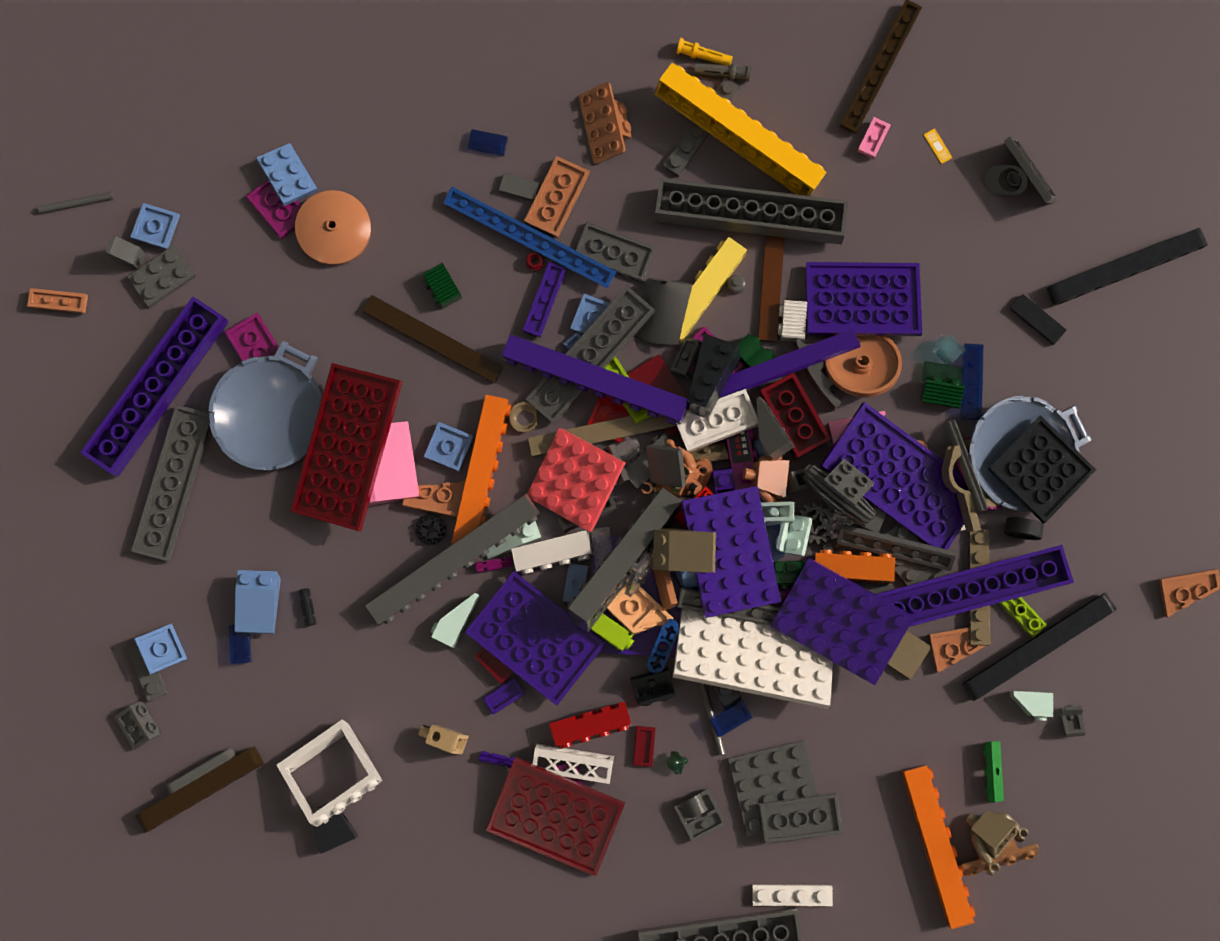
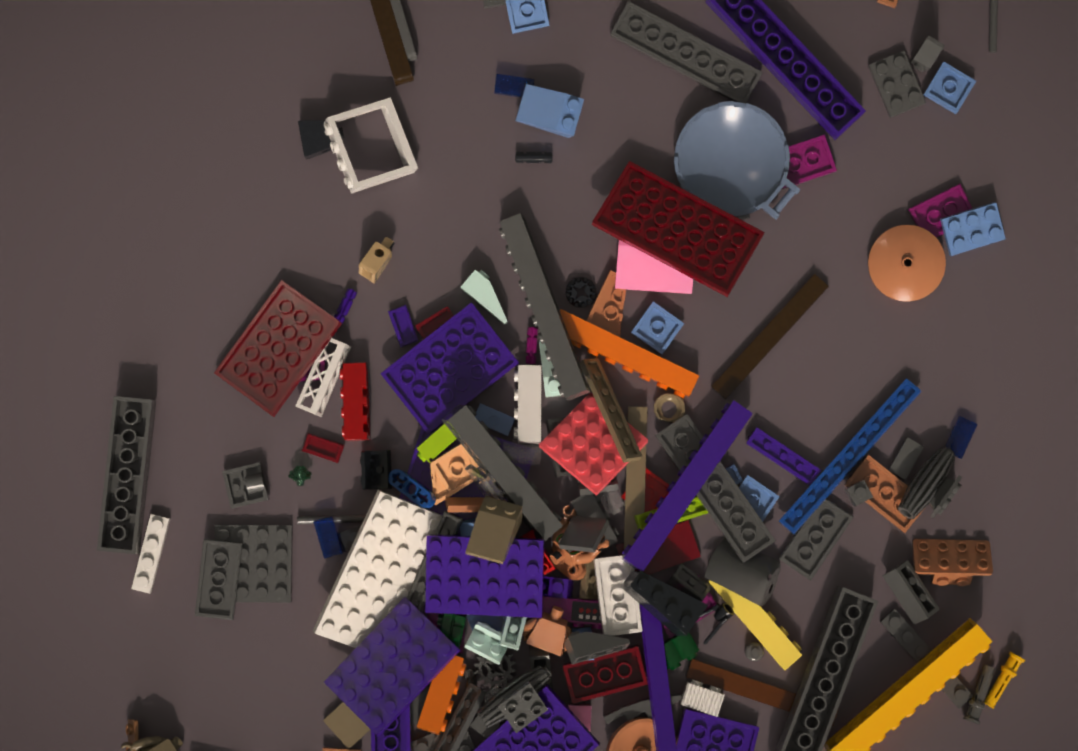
camera: 105 degrees right, 5 degrees up
(442, 286) = (821, 358): dark green brick -> none
(534, 255) = (831, 455): dark red plate -> none
(539, 469) = (610, 410): none -> dark tan plate
(540, 155) = (931, 486): none -> dark grey plate
(562, 219) = (858, 493): none -> dark grey brick
(644, 152) = (911, 592): none -> dark grey brick
(710, 318) = (722, 614): none -> black plant
(938, 847) = (161, 703): orange brick -> none

